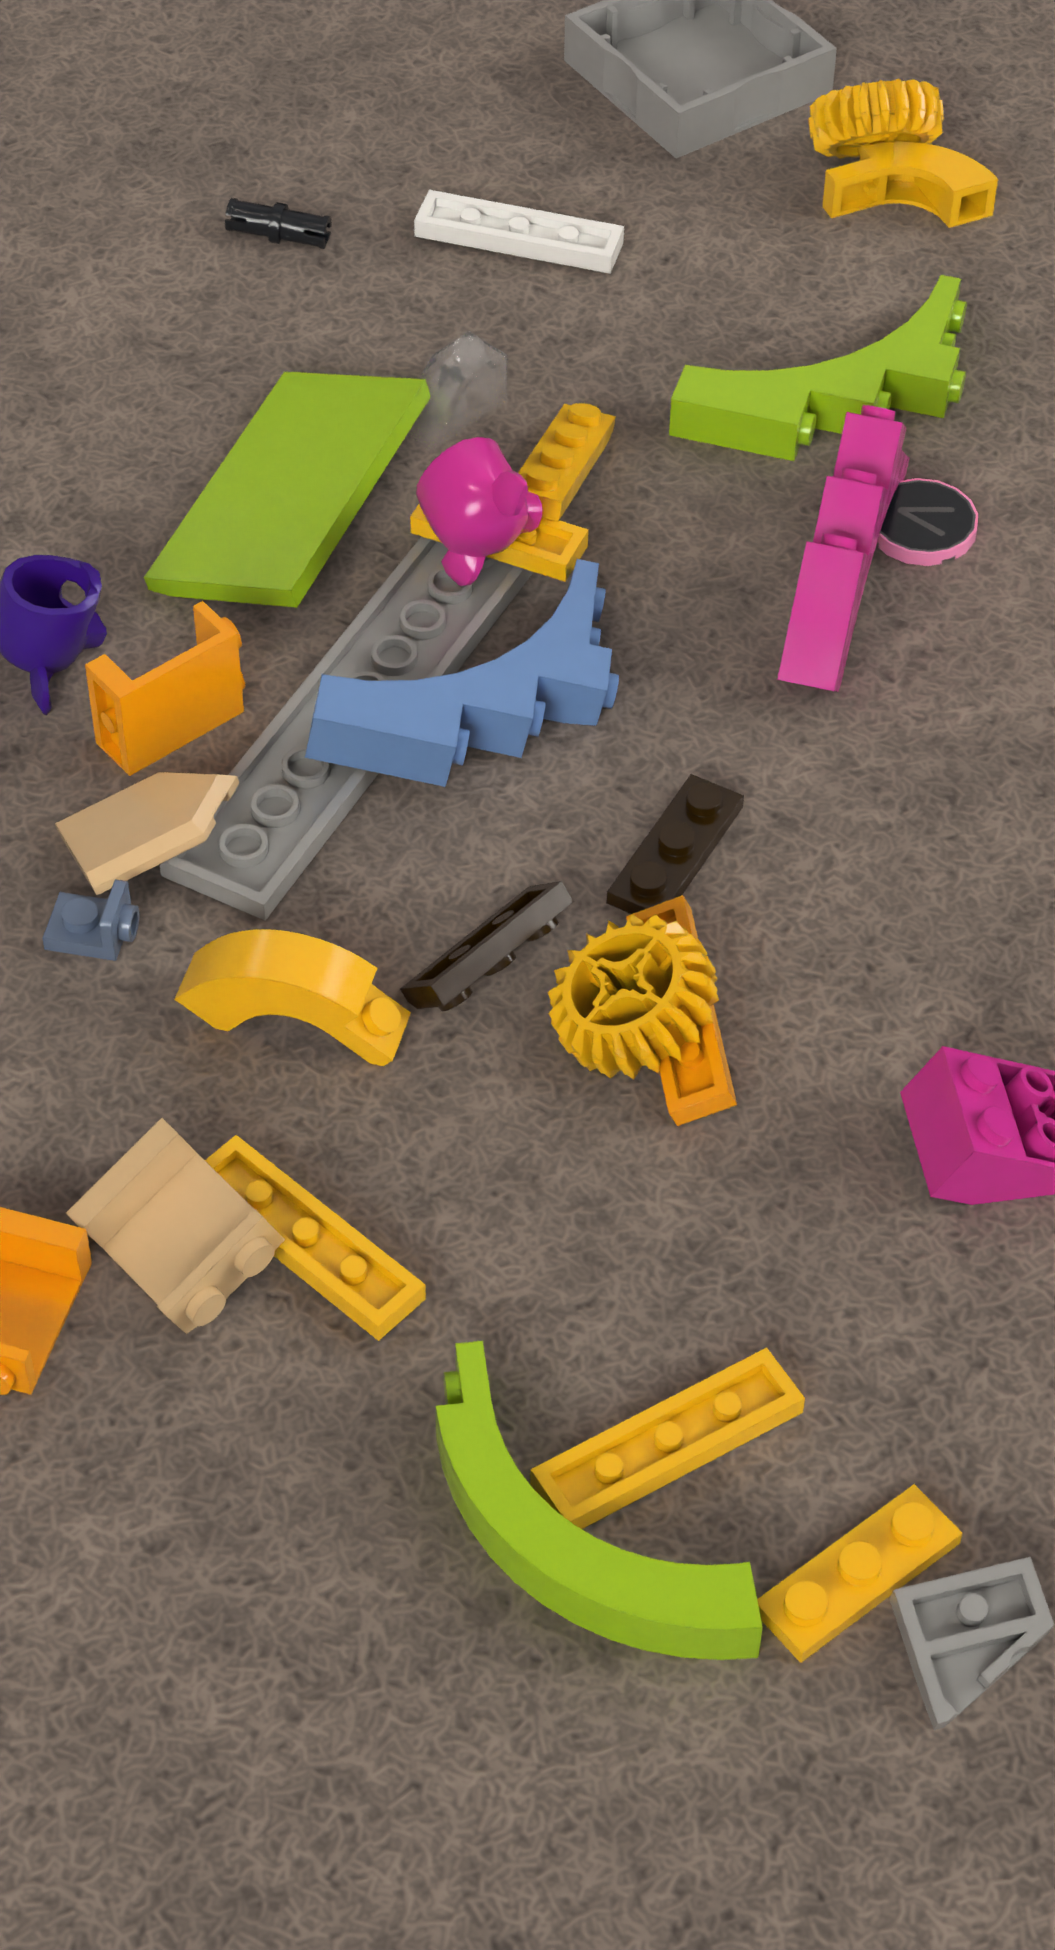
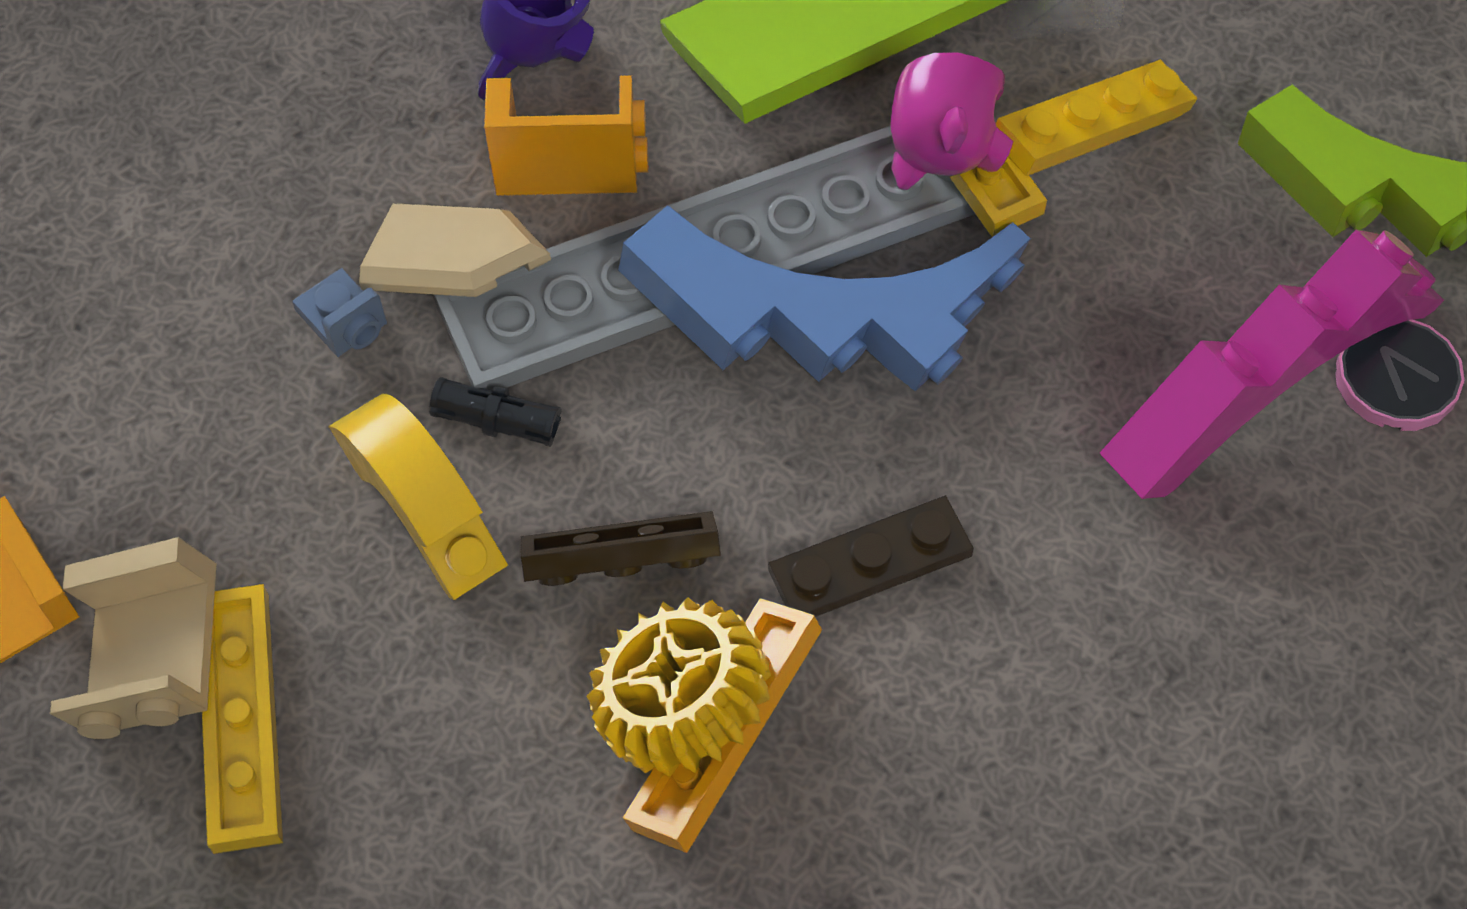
camera: 40 degrees right, 10 degrees up
(301, 913) = (495, 411): none -> black pin

